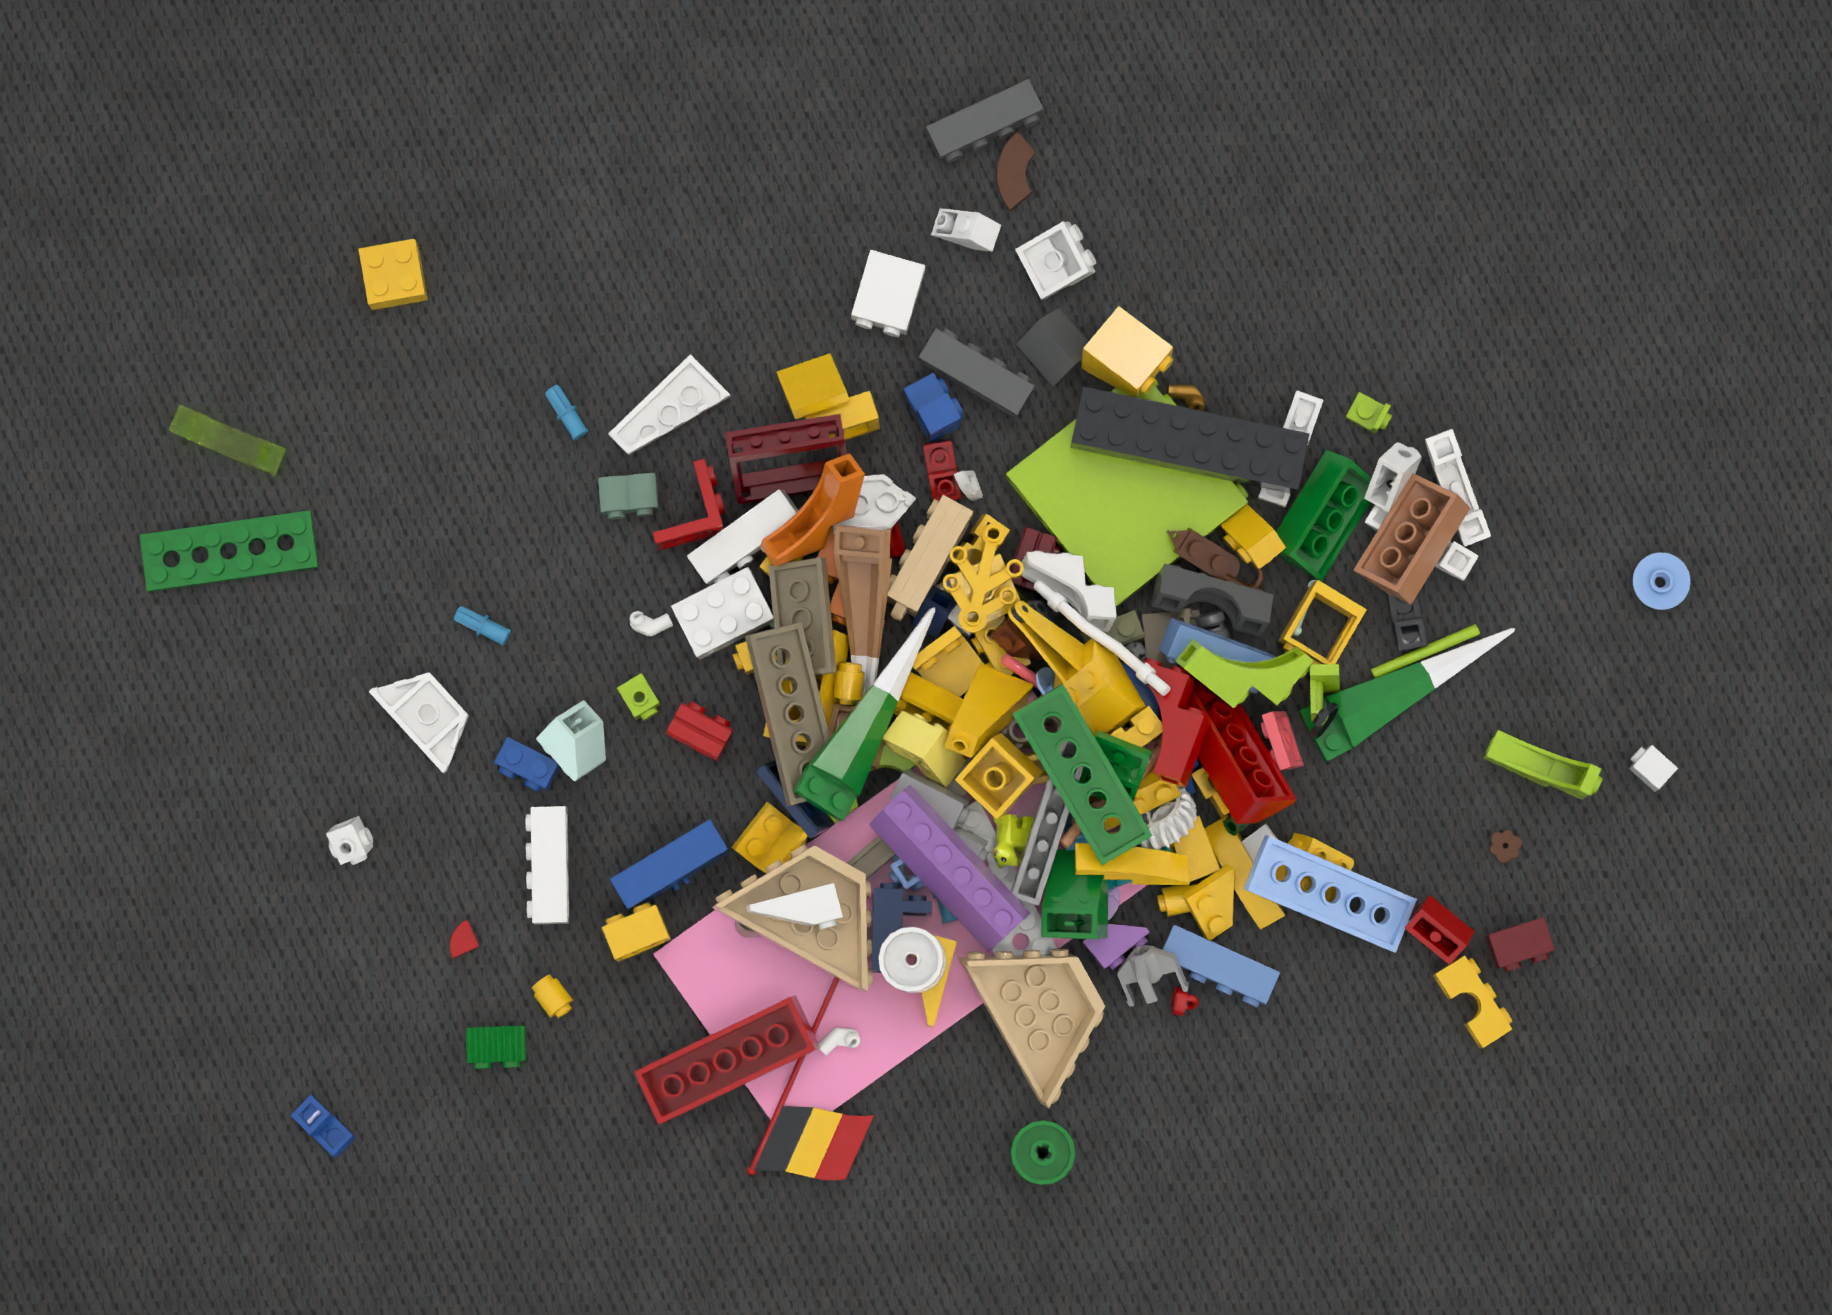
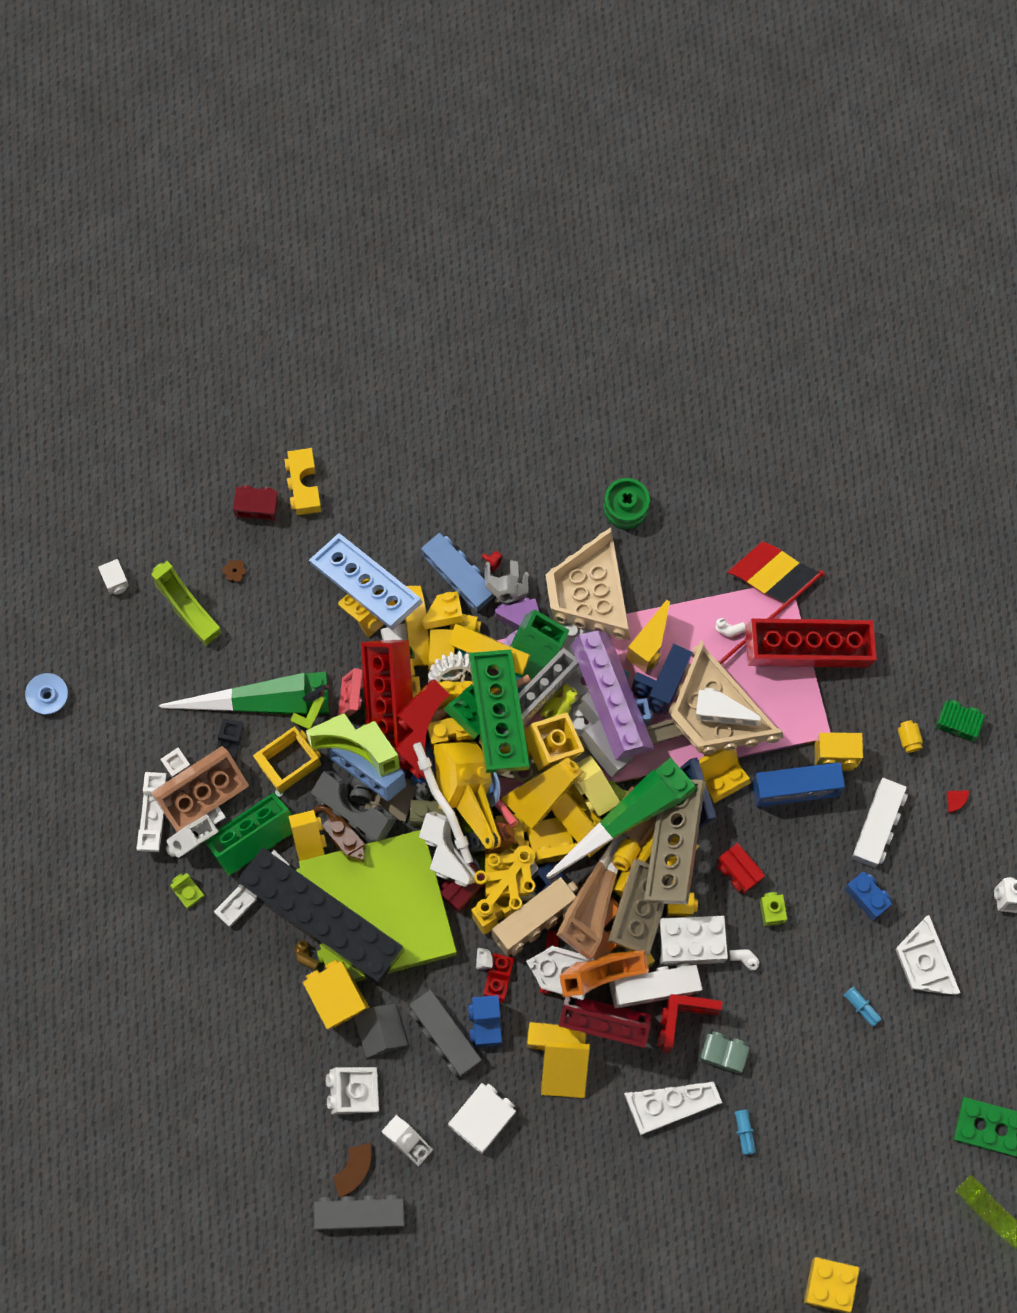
camera: 160 degrees left, 10 degrees down
(575, 740) = (830, 895): light aqua slope -> none
(929, 965) = (673, 632): white wheel -> none
(1425, 651) = (232, 716): lime bar -> none
(1439, 929) = (303, 532): red brick -> none

